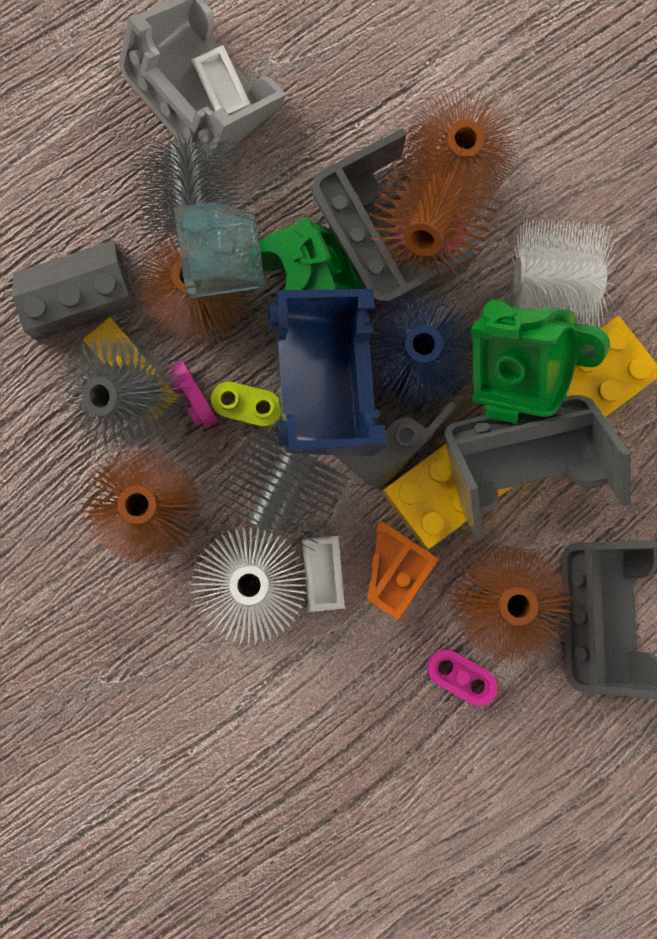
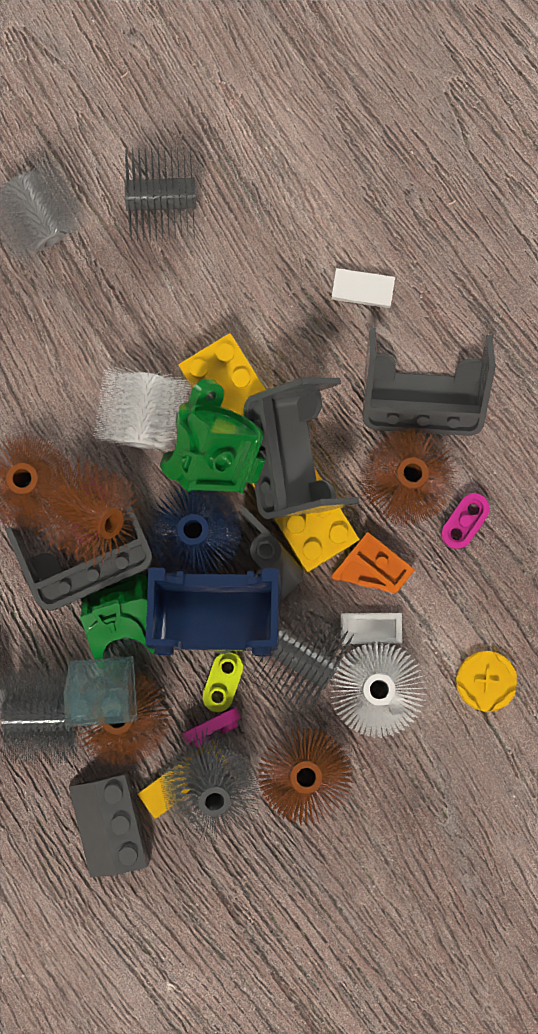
camera: 80 degrees left, 0 degrees up
(272, 717) = (486, 681): none -> yellow tile

